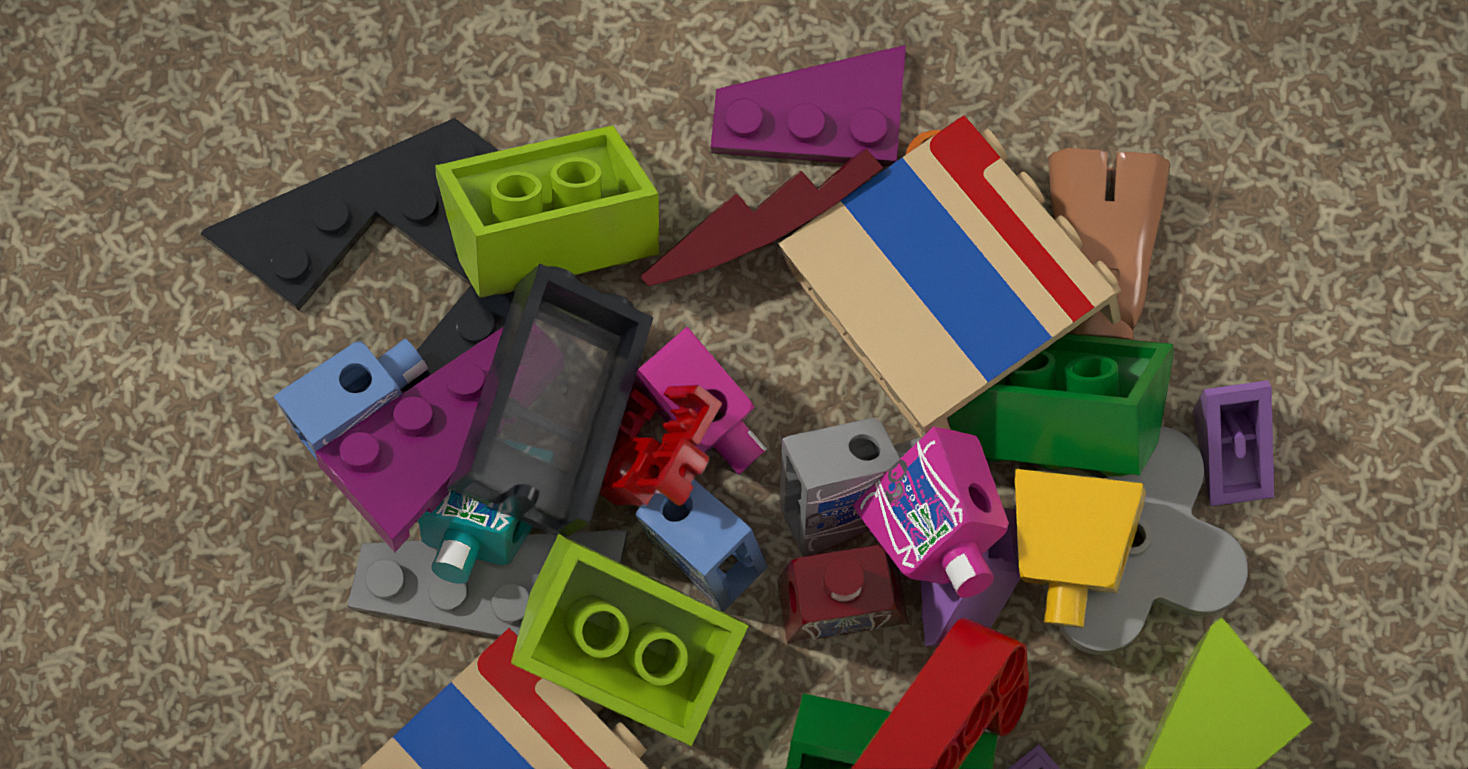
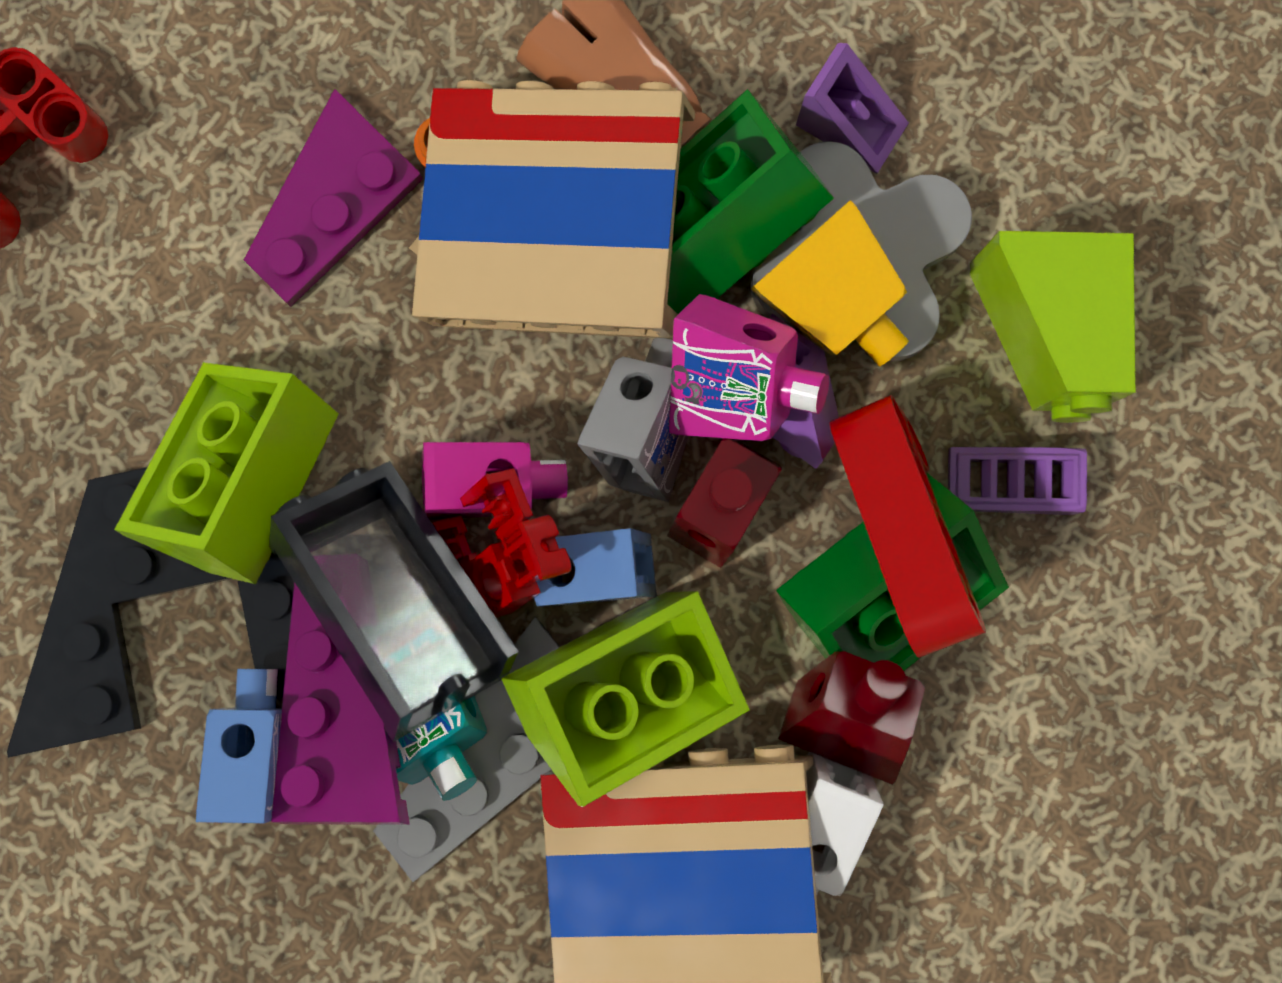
camera: 55 degrees left, 10 degrees up
(738, 230) = (373, 337): dark red slope -> none

